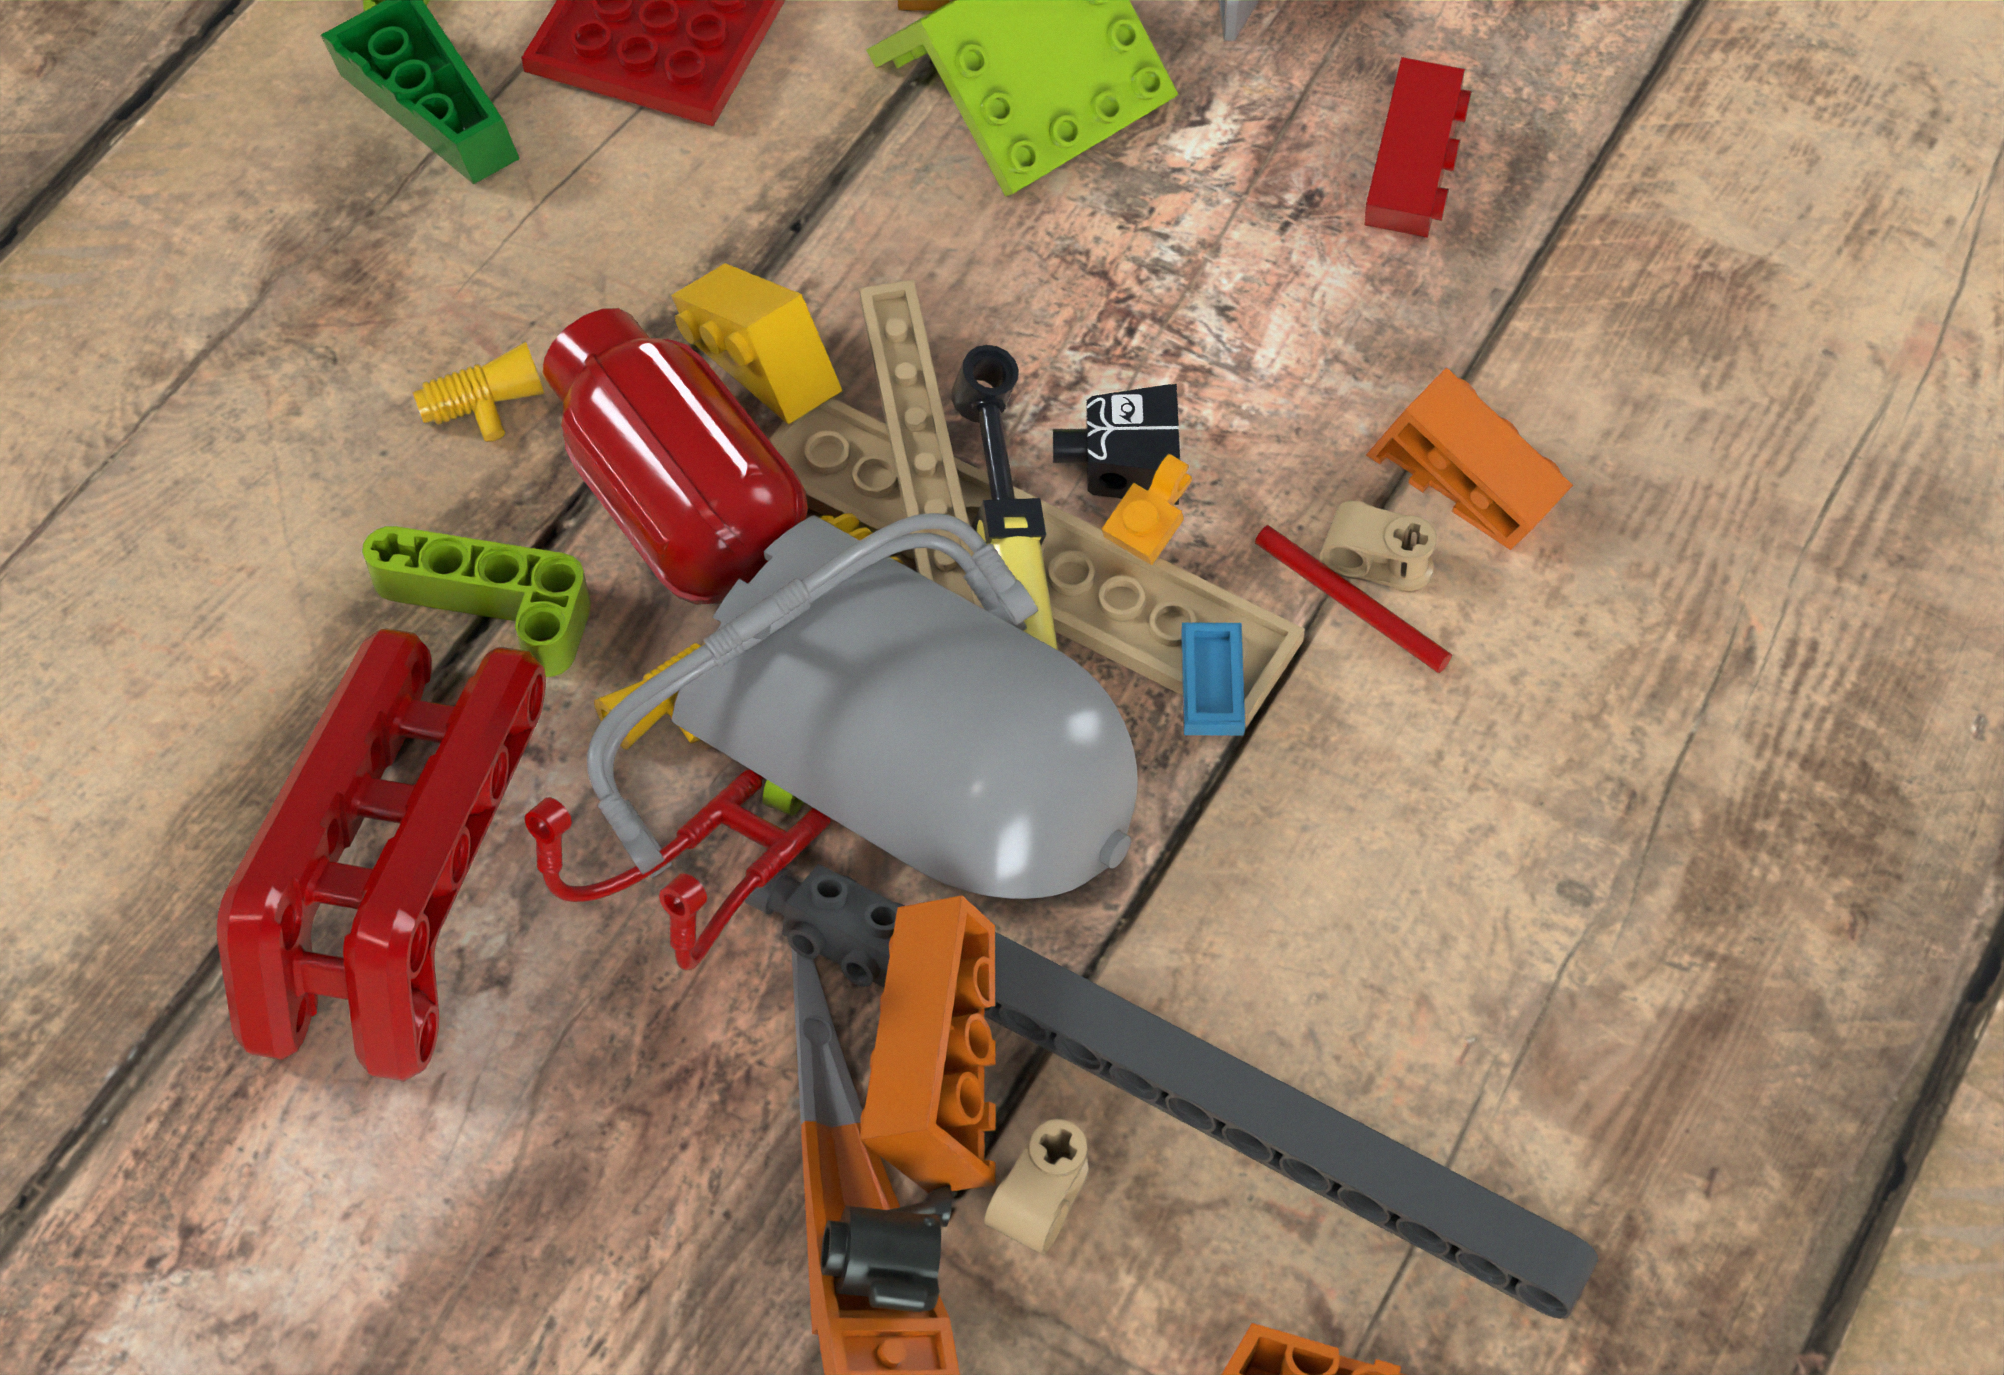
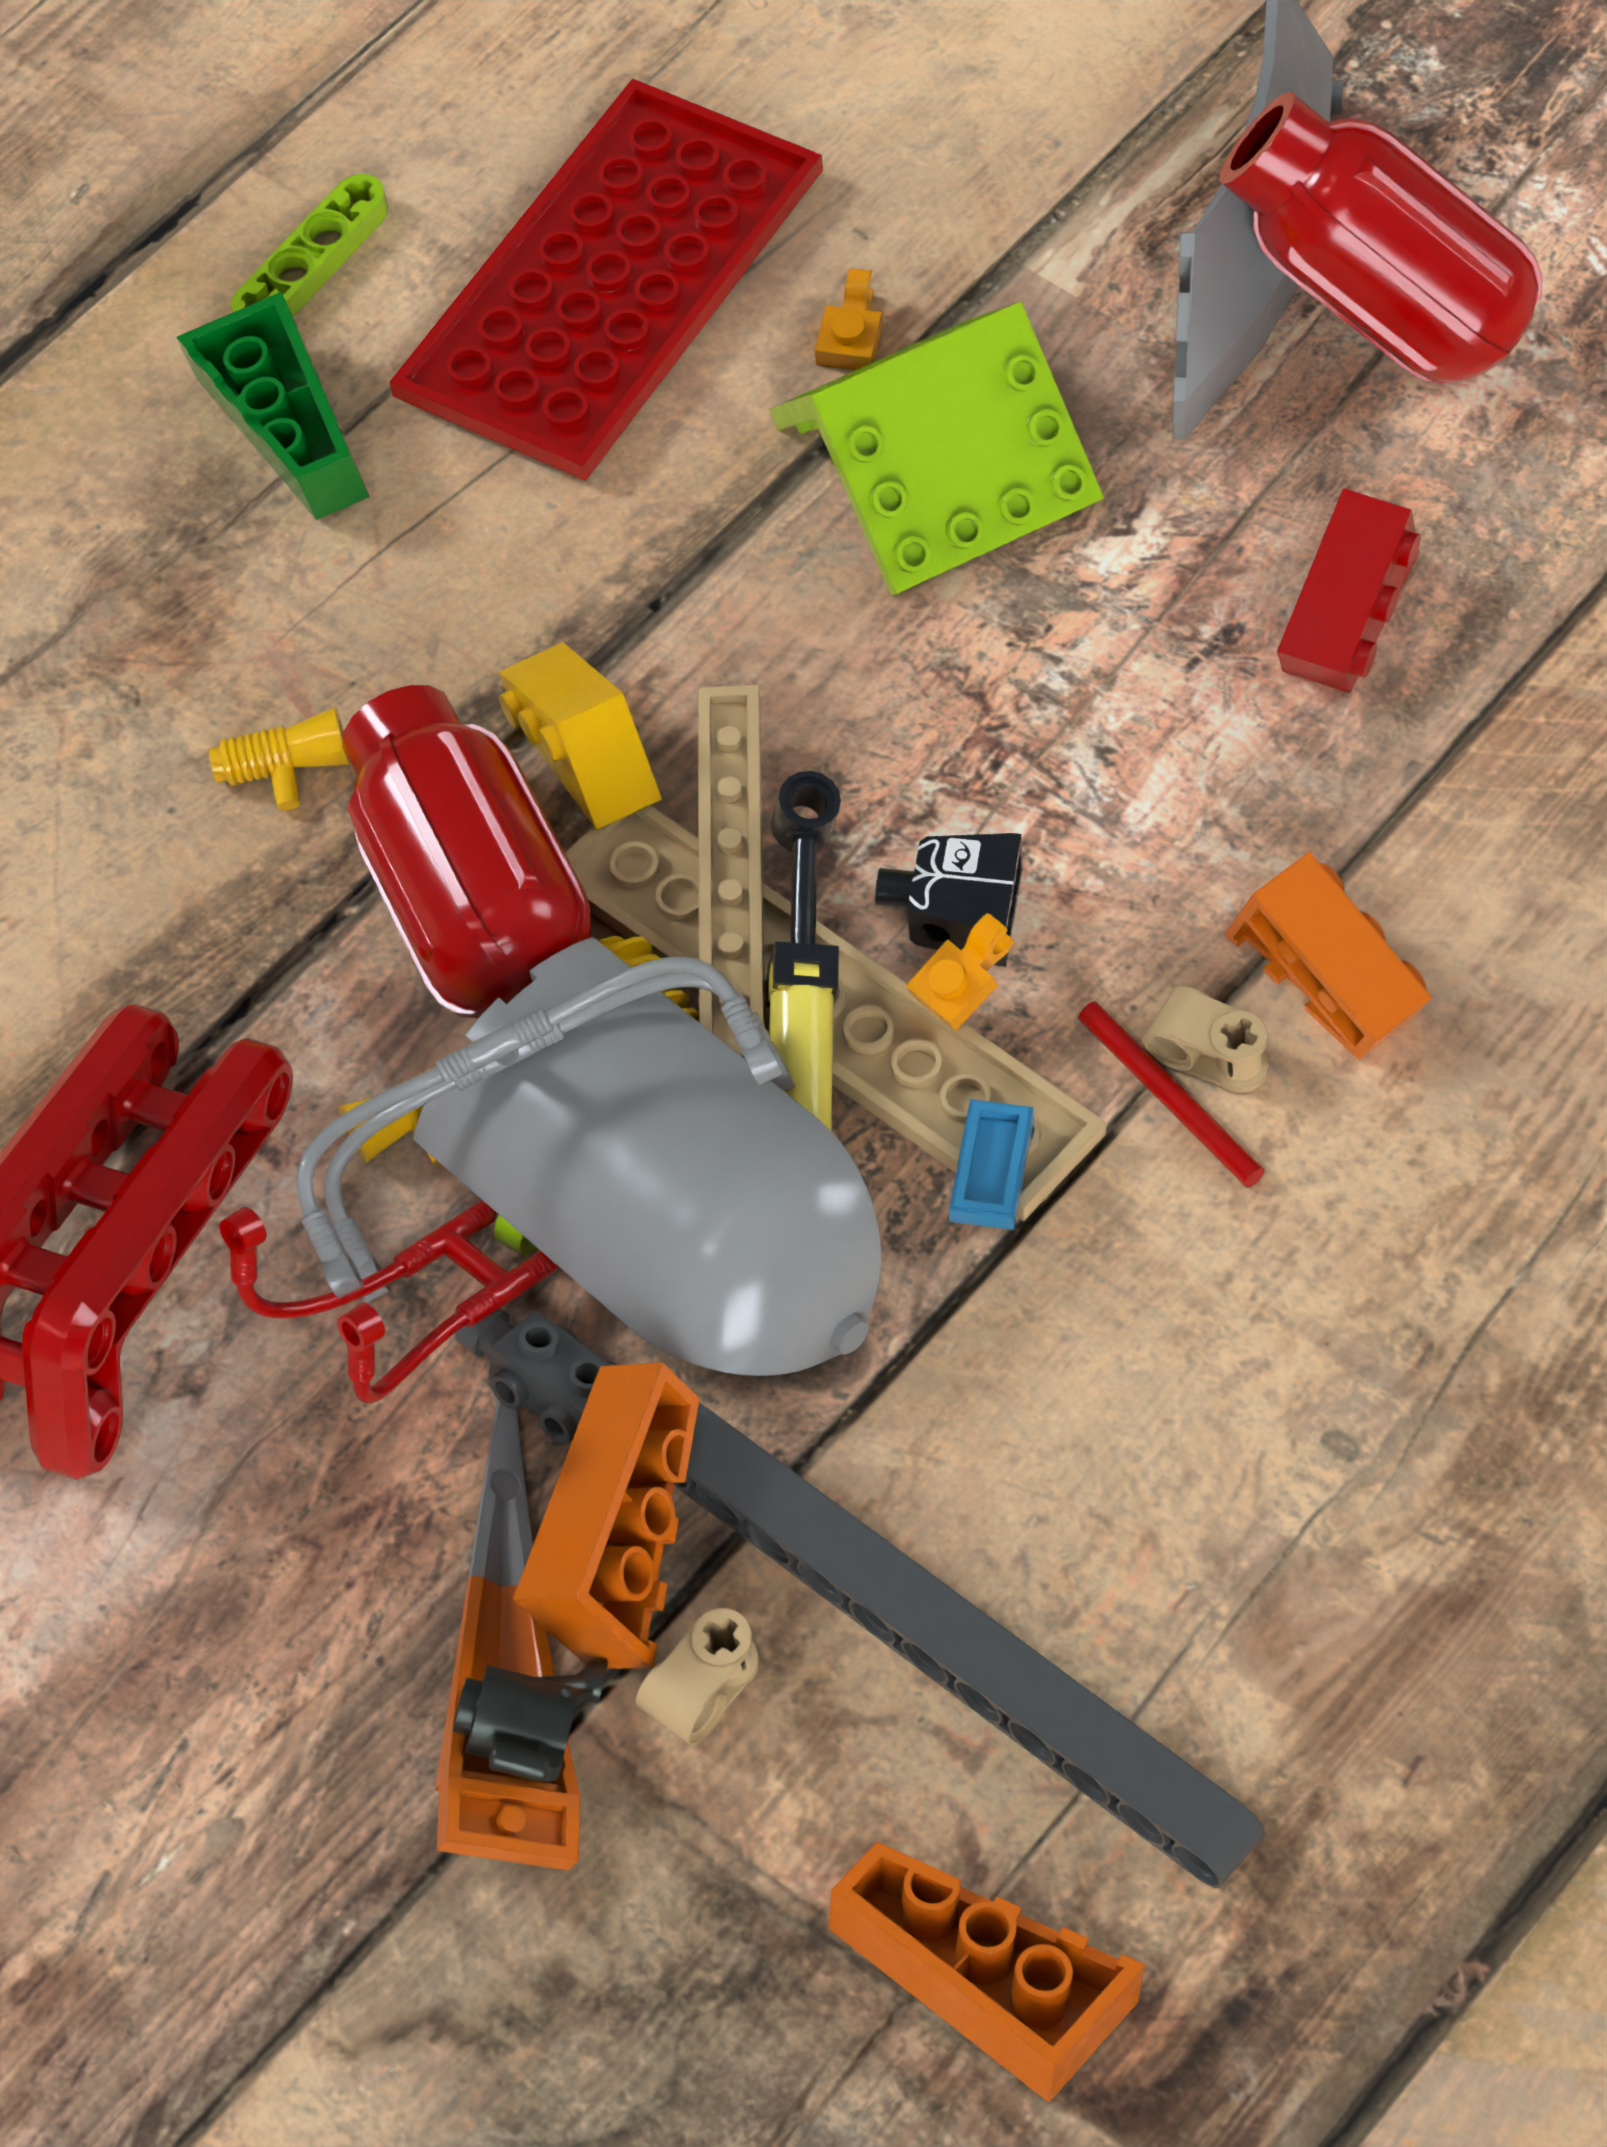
camera: 15 degrees right, 0 degrees up
(412, 567) = (175, 940): lime beam -> none

